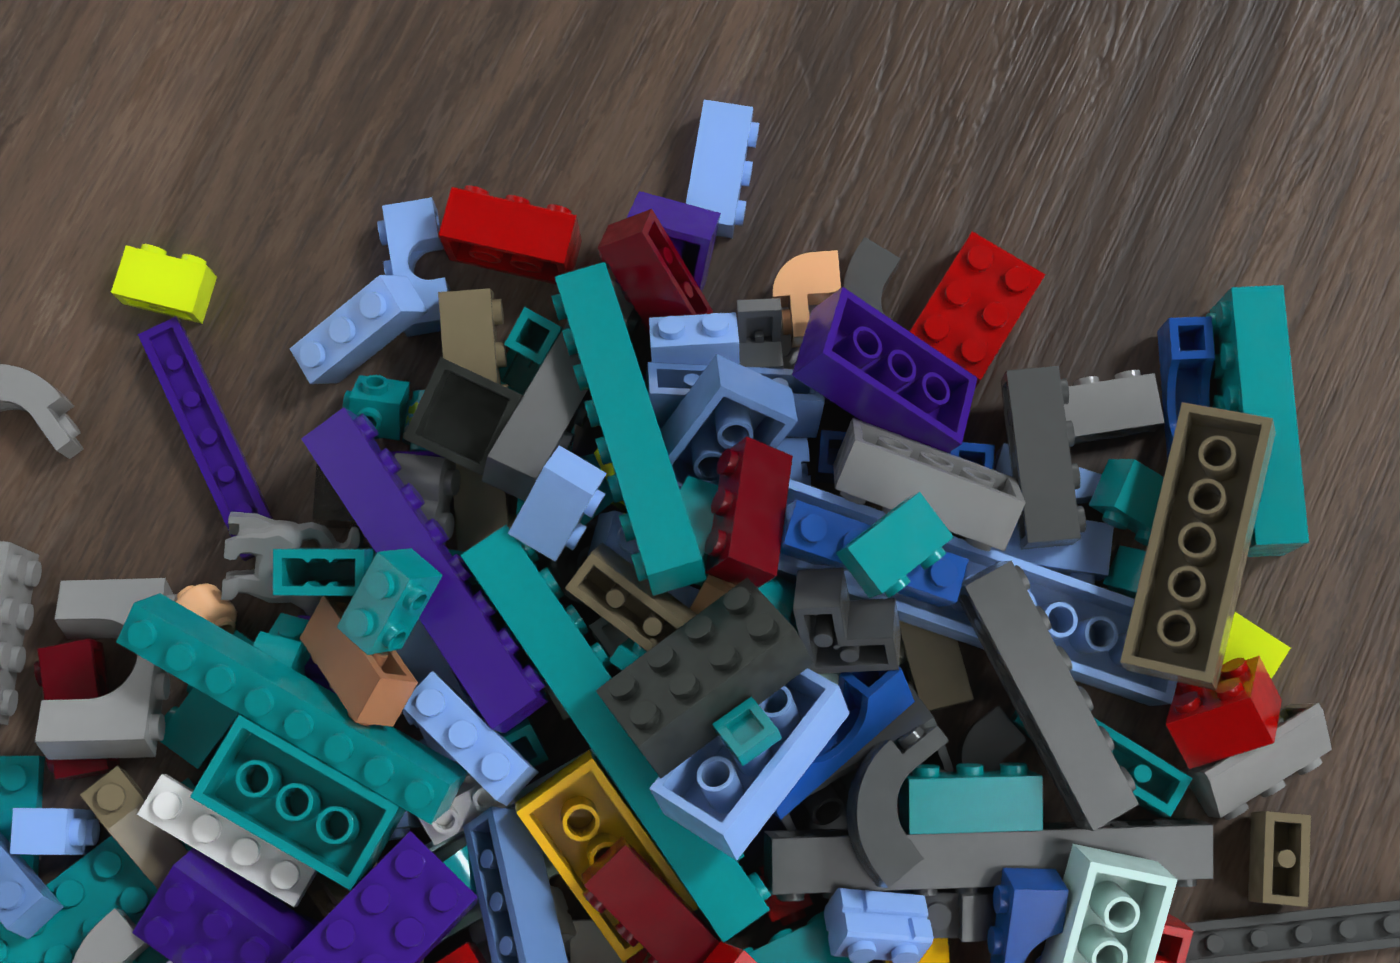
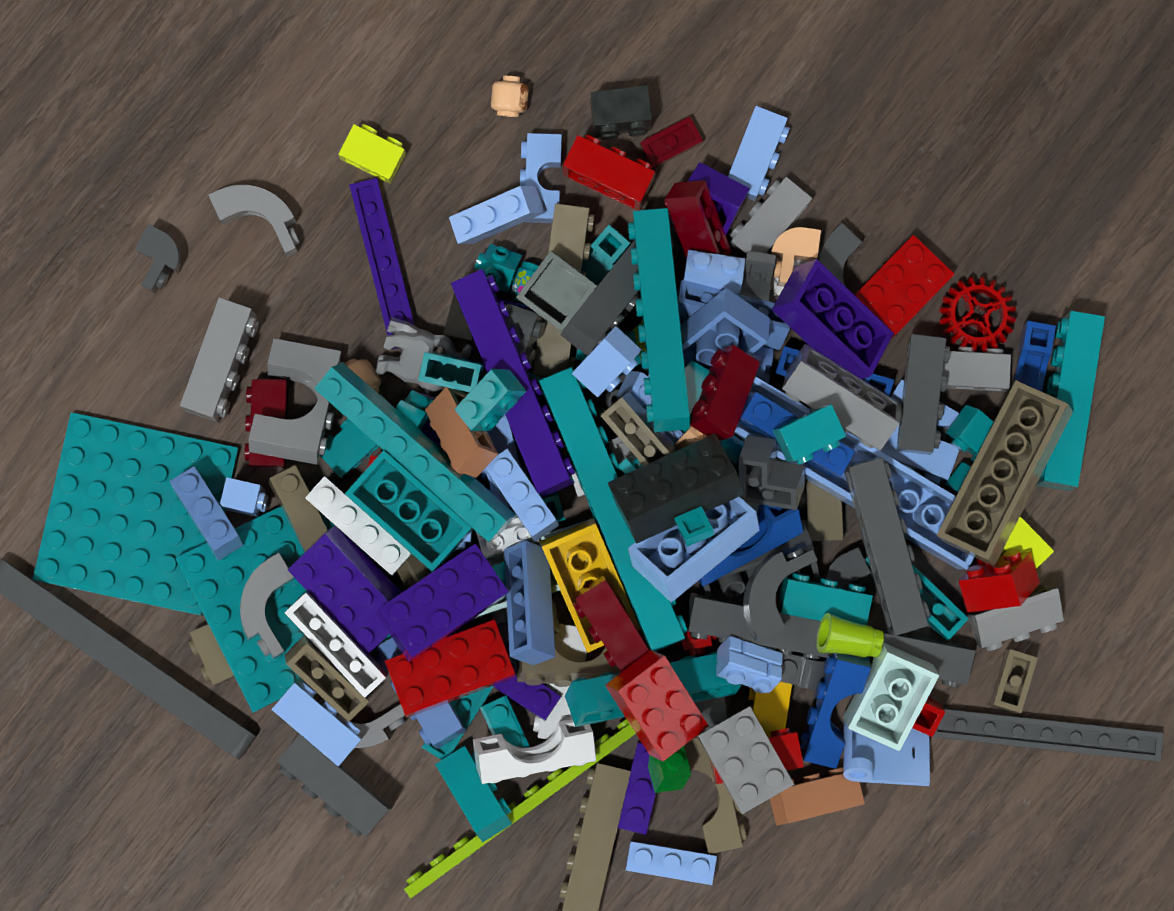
camera: 10 degrees right, 5 degrees up
(348, 163) = (509, 96): none -> light nougat head
(511, 146) = (621, 112): none -> pearl dark grey brick
(594, 178) = (671, 142): none -> dark red plate
(756, 258) = (770, 218): none -> light grey brick
(1021, 850) = (848, 637): none -> lime plant
(1080, 315) = (971, 304): none -> red gear

